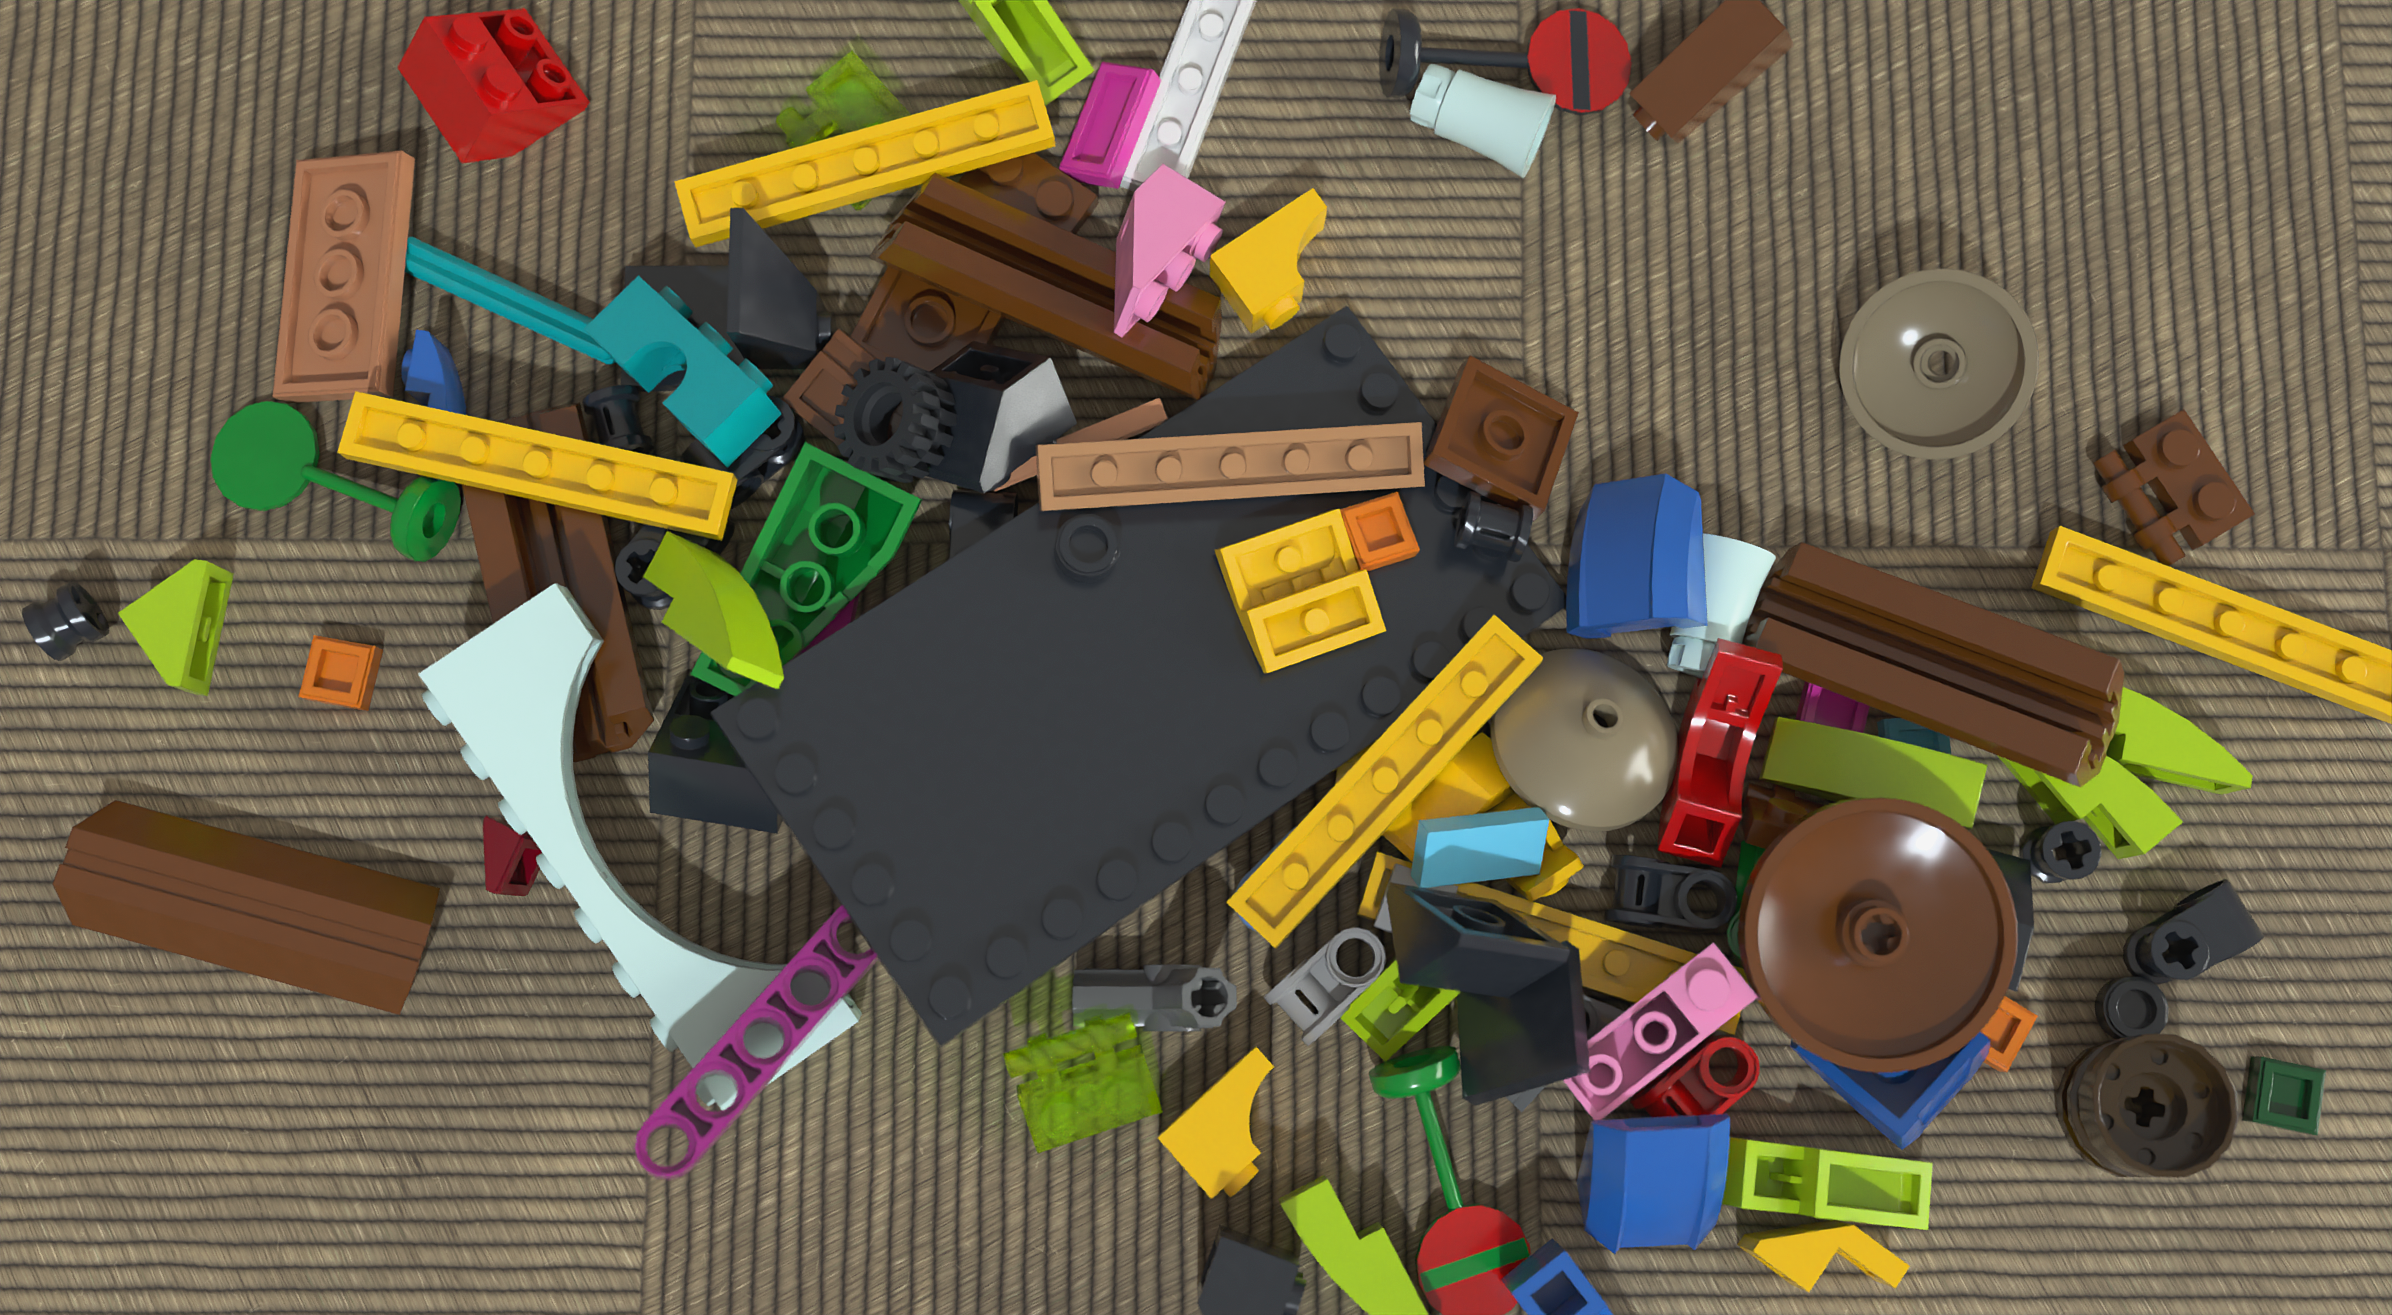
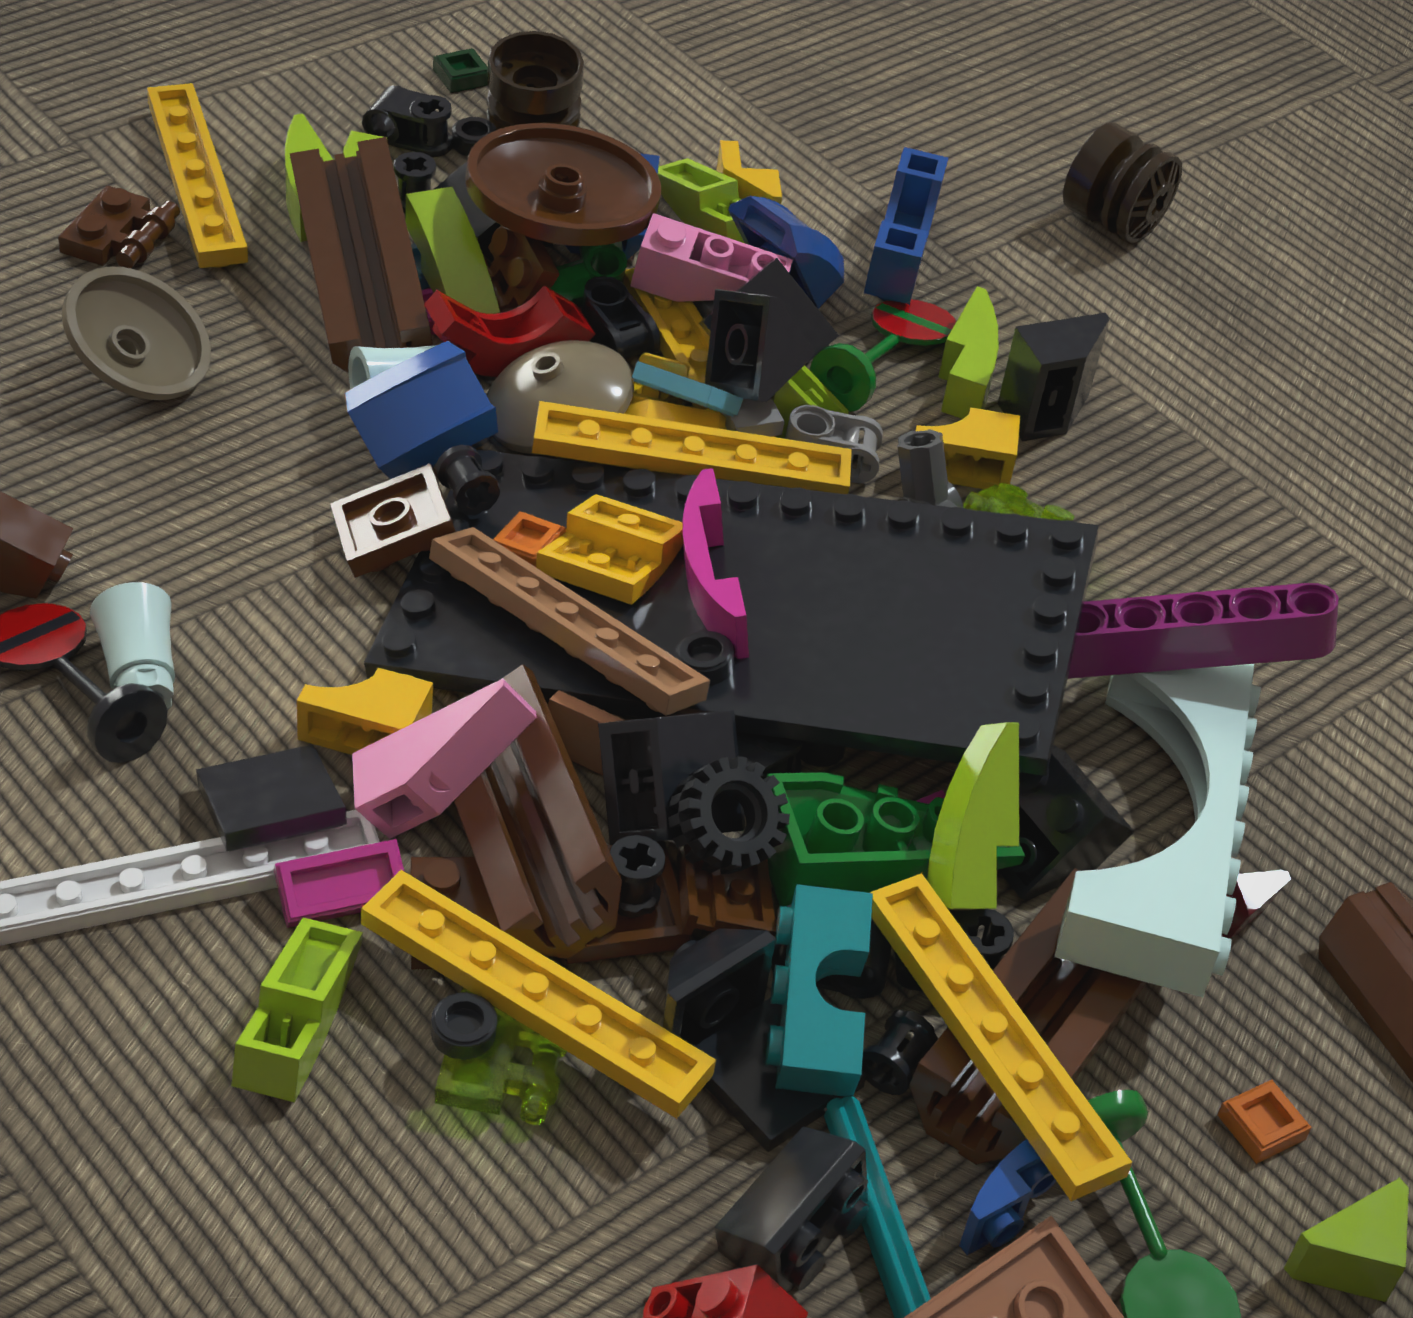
camera: 135 degrees left, 35 degrees down
(527, 200) = (798, 1208): none -> black slope
(882, 96) = (464, 1026): none -> black tile
(906, 298) = (639, 865): none -> black bush
(1114, 590) = (715, 601): none -> dark pink slope
(1238, 123) = (271, 797): none -> black tile

